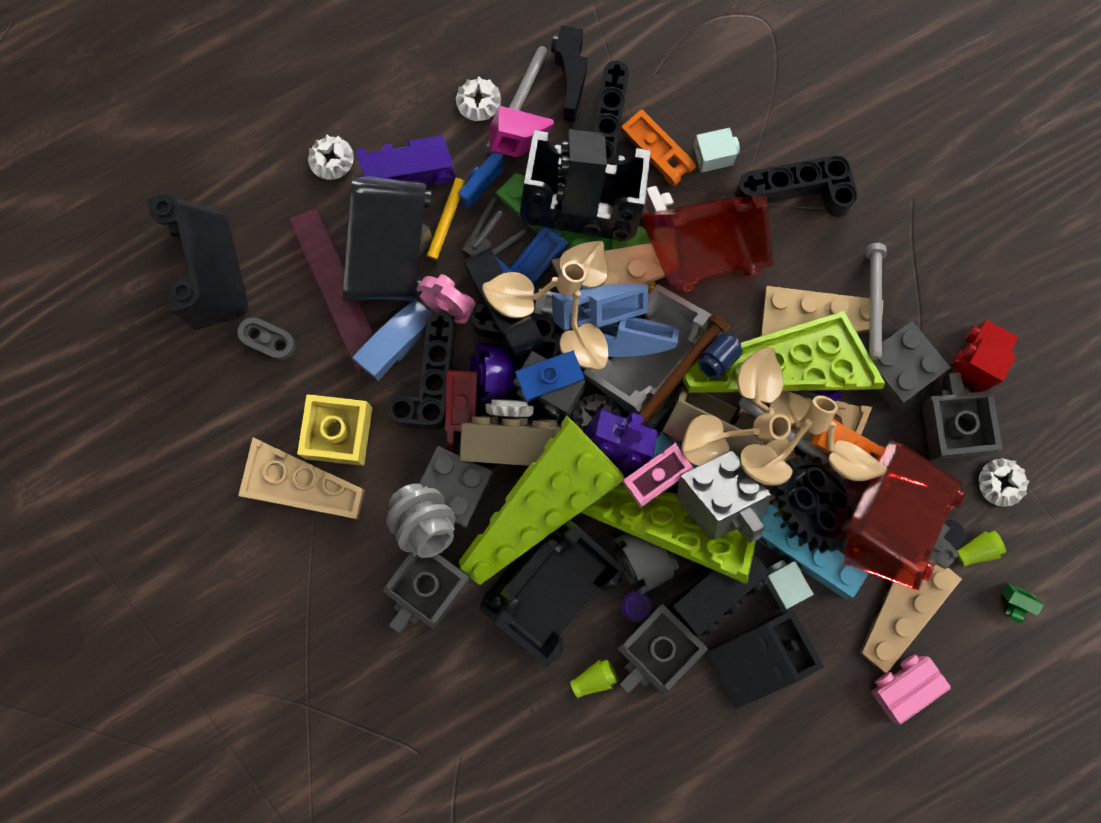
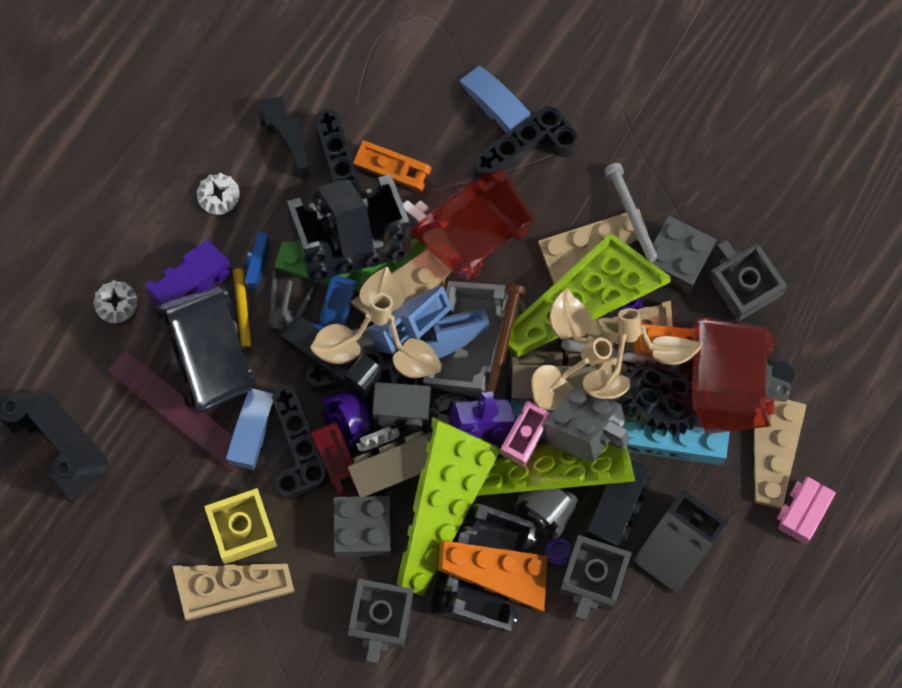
camera: 30 degrees left, 5 degrees down
(268, 338) = (141, 478): dark grey plate -> none
(420, 520) = (353, 559): light grey piece -> none
(442, 296) = (278, 372): bright pink plate -> none
(513, 131) = (267, 208): dark pink slope -> none
(525, 84) = (253, 183): light grey bar -> none
(550, 376) = (400, 395): blue plate -> none
(571, 604) = (499, 571): none -> orange wing
(595, 679) = (554, 624): lime cone -> none
(716, 149) = (442, 146): light aqua brick -> none
(720, 355) = (529, 315): dark blue brick -> none
(787, 584) = (670, 474): light aqua brick -> none
(791, 127) = (494, 98): none -> medium blue slope
(982, 549) = (810, 373): lime cone -> none
(985, 356) = (740, 217): red brick -> none
(990, 485) = (795, 320): white gear -> none
(1020, 602) = (860, 400): green tile -> none

